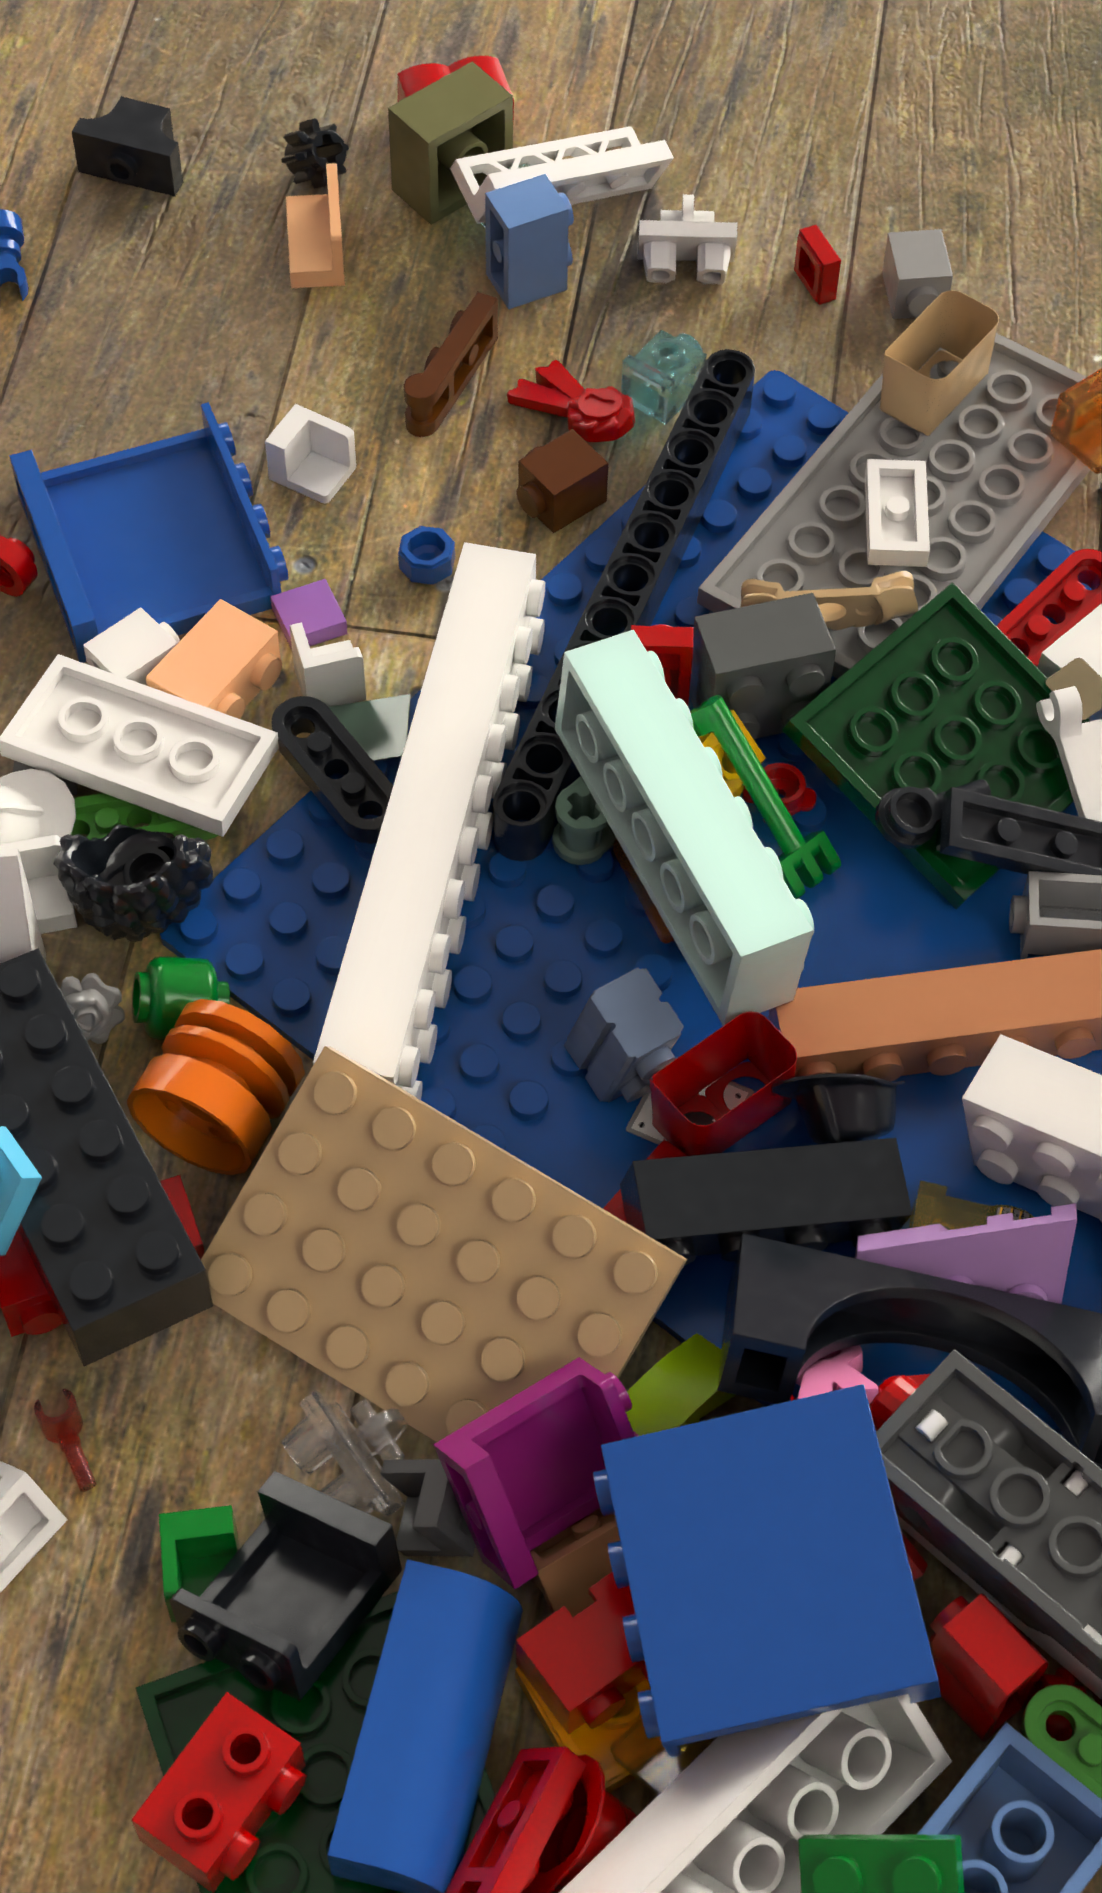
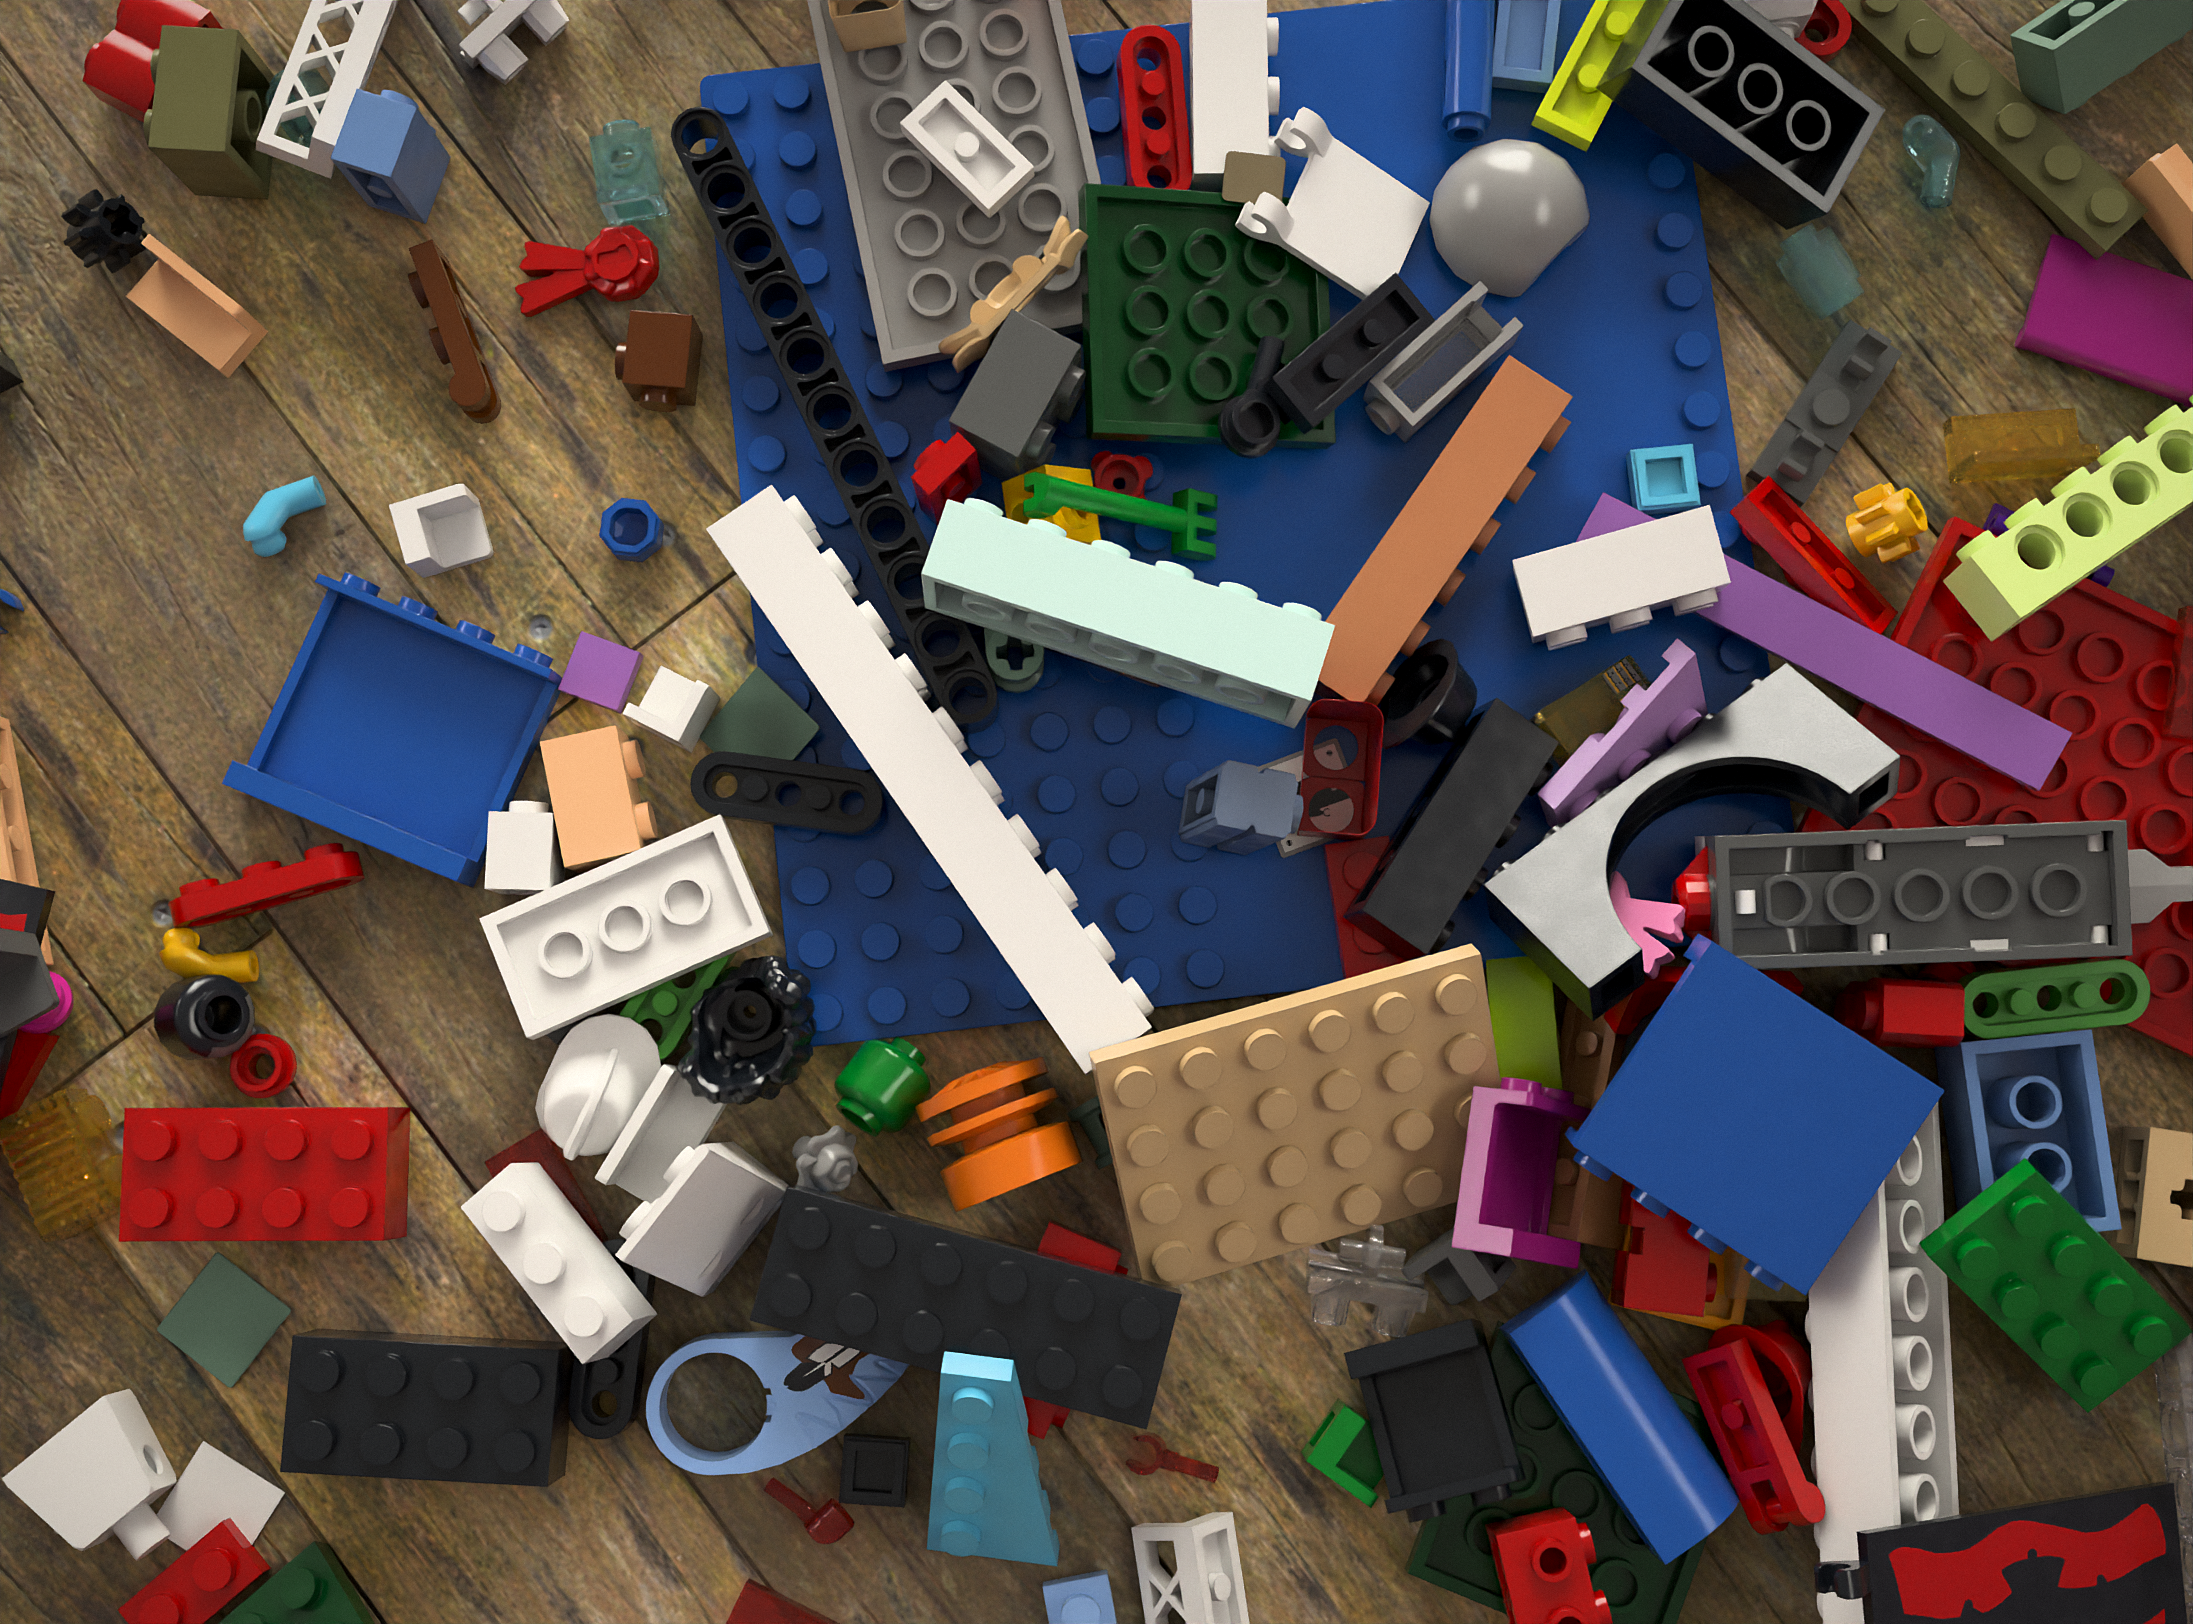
camera: 45 degrees left, 25 degrees up
(233, 366) = (275, 508): none -> medium azure arm

